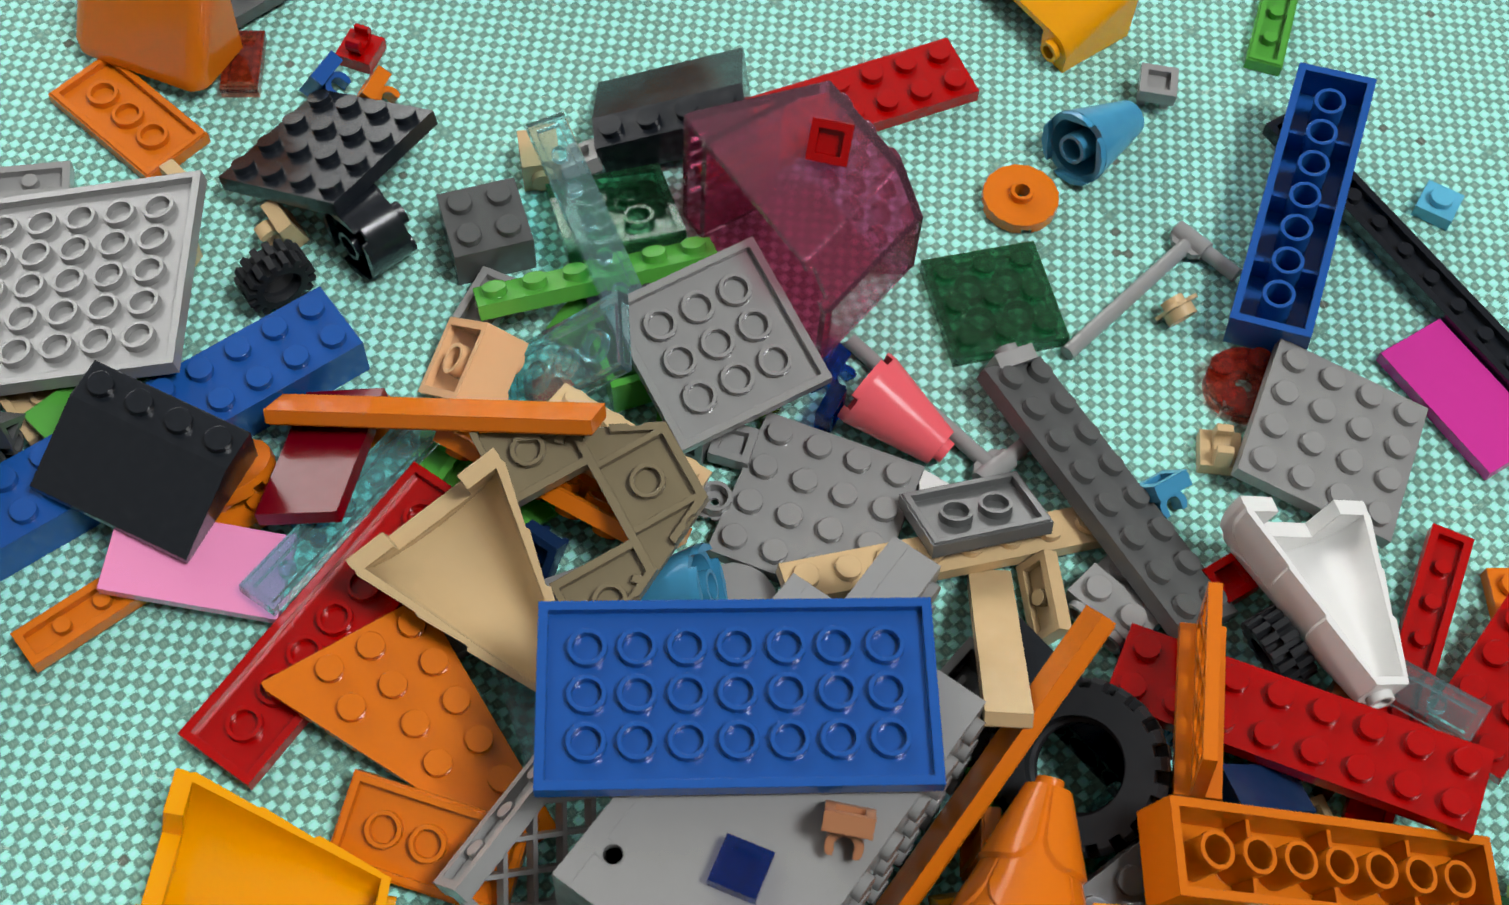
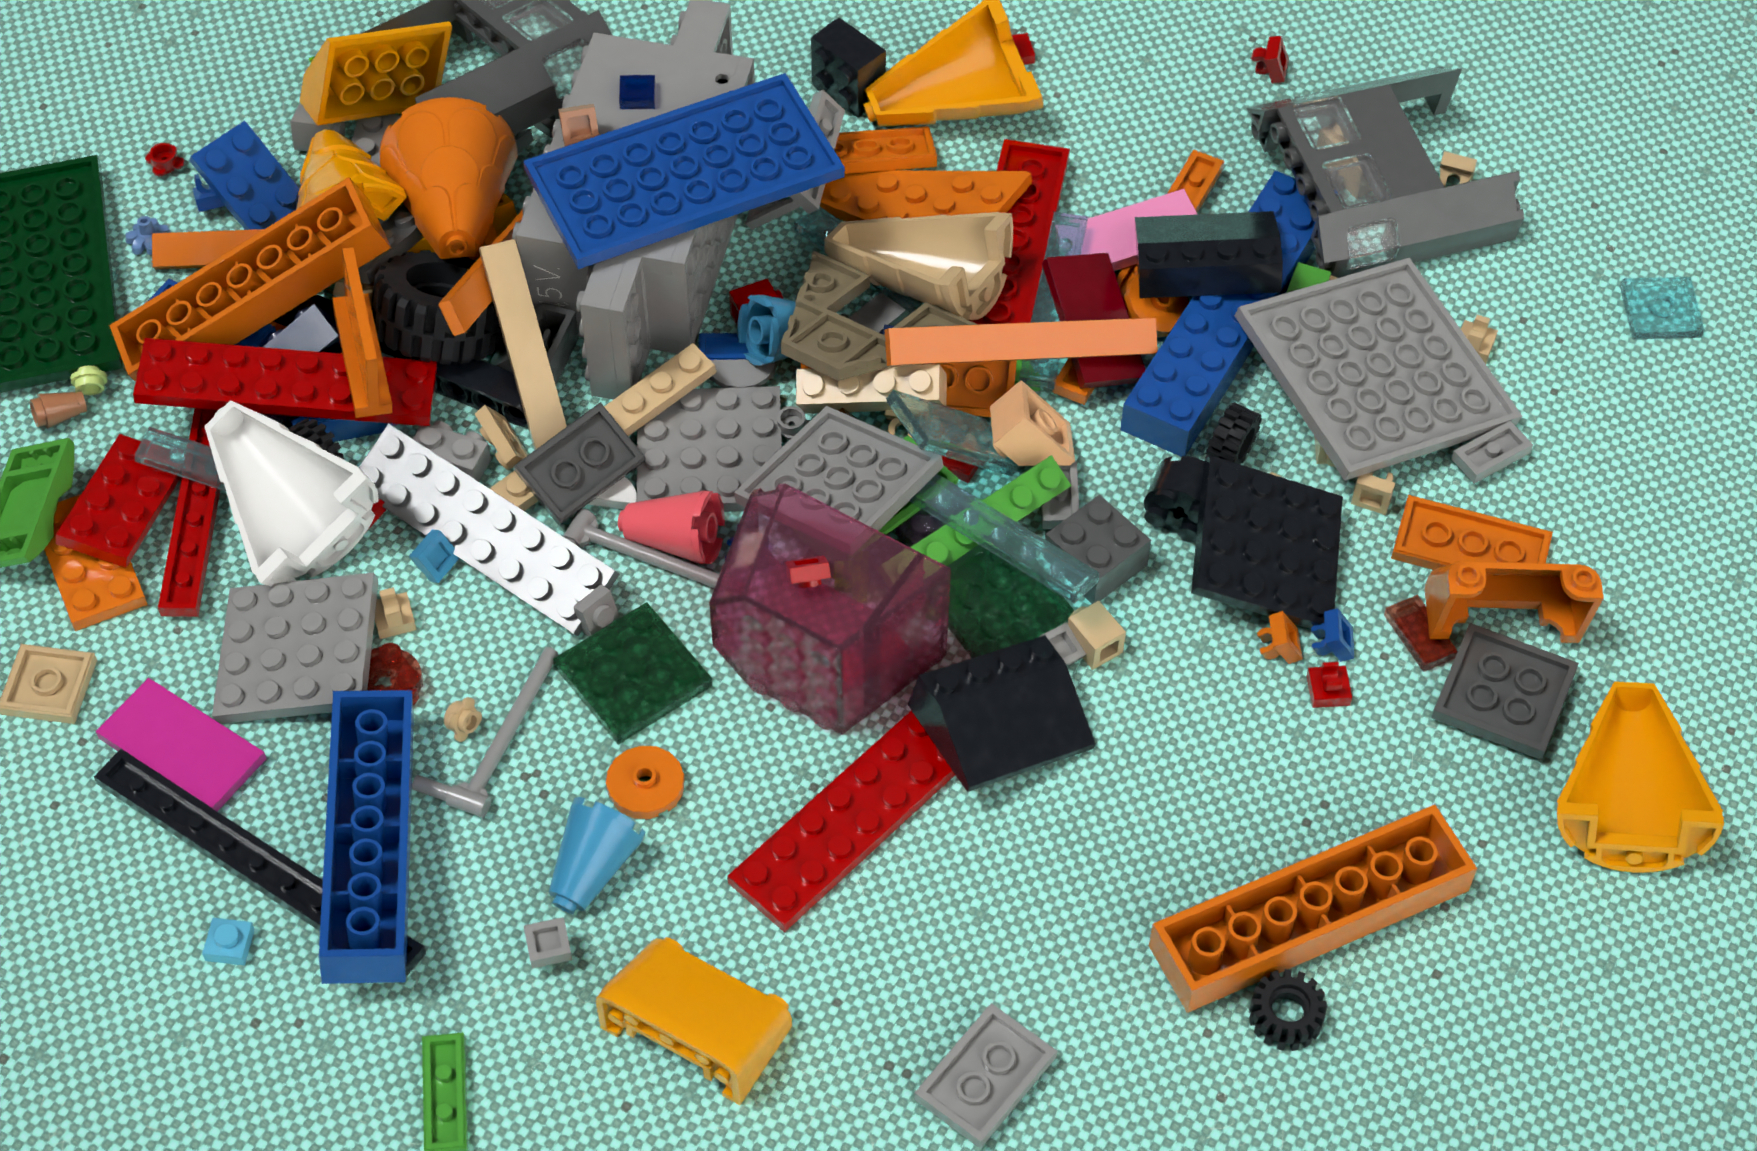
camera: 160 degrees right, 5 degrees down
(830, 406) = (732, 515): clear blue tile -> none

